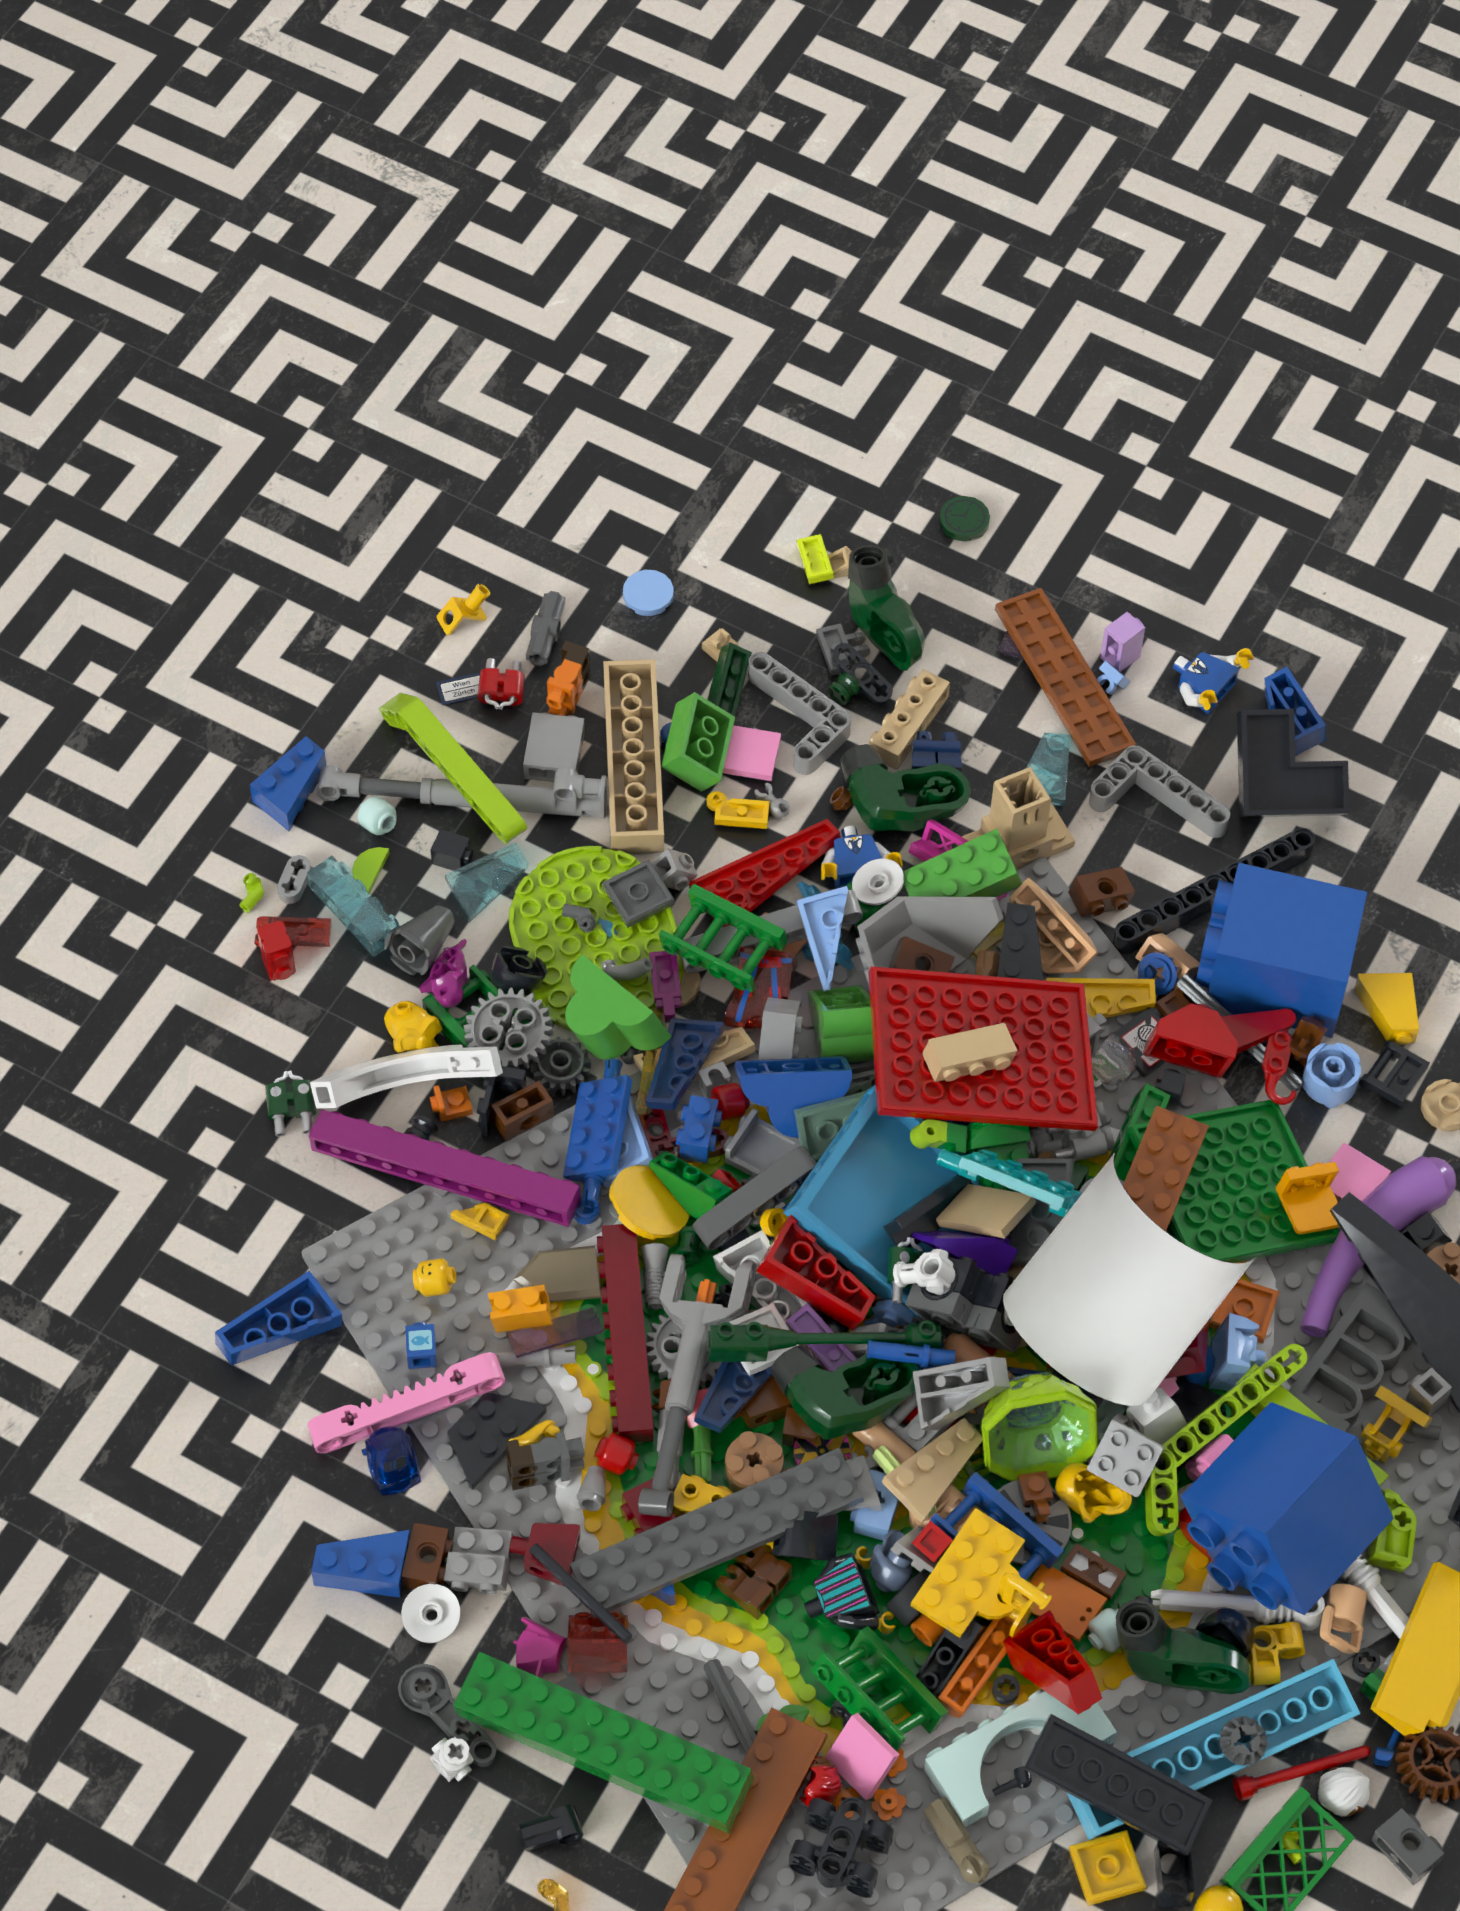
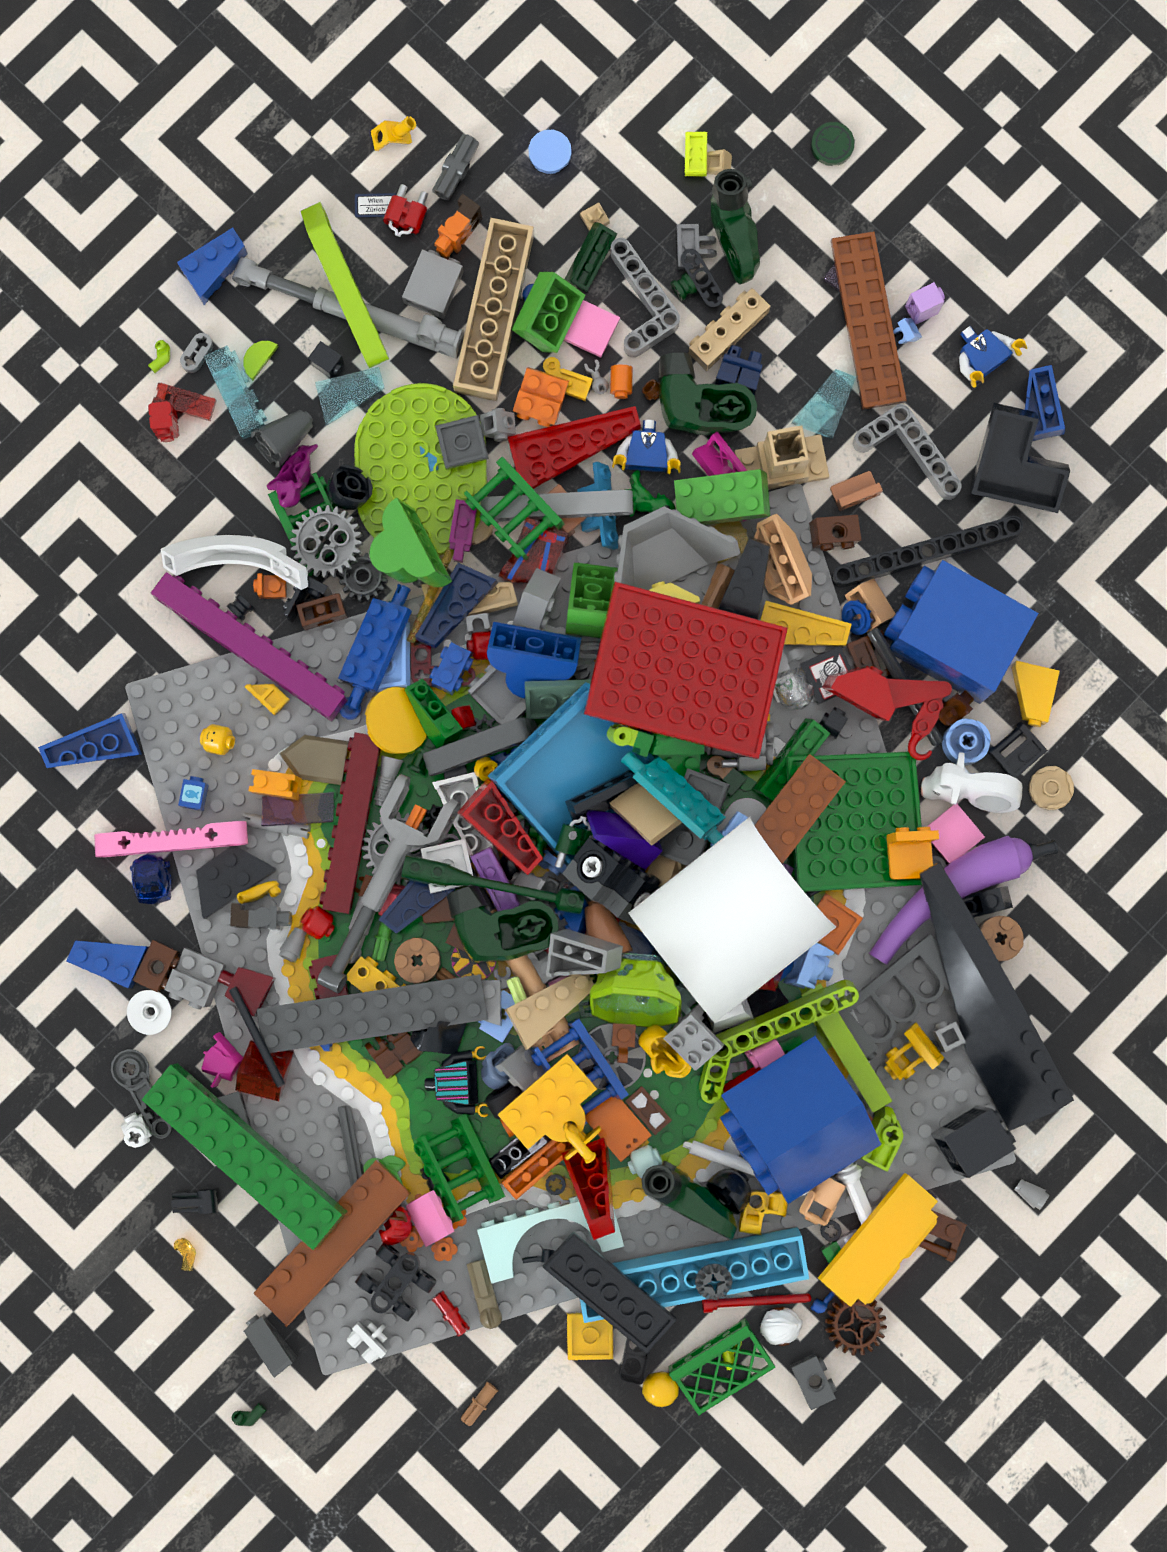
camera: 15 degrees right, 25 degrees up
(289, 1101) = (145, 553): dark green piece -> none
(377, 815) = (275, 312): light aqua head -> none
(411, 1027) = (254, 516): yellow head -> none
(582, 916) = (413, 450): dark grey arm -> none
(627, 971) = (438, 510): light grey arm -> none
(715, 831) = (540, 397): none -> orange plate
(802, 796) = (621, 381): none -> orange brick
(822, 923) = (596, 516): light blue wing -> none
(875, 874) = (651, 475): white dish -> none
(910, 950) = (661, 555): reddish brown brick -> none
(910, 1354) = (554, 915): blue pin -> none
(921, 1877) = (450, 1313): none -> red pin
(929, 1271) = (580, 859): white connector -> none
(932, 1541) = (528, 1070): red tile -> none
(969, 1052) = (671, 680): tan brick -> none
(1111, 849) = (855, 490): none -> nougat panel
(1336, 1113) = (983, 790): none -> white animal

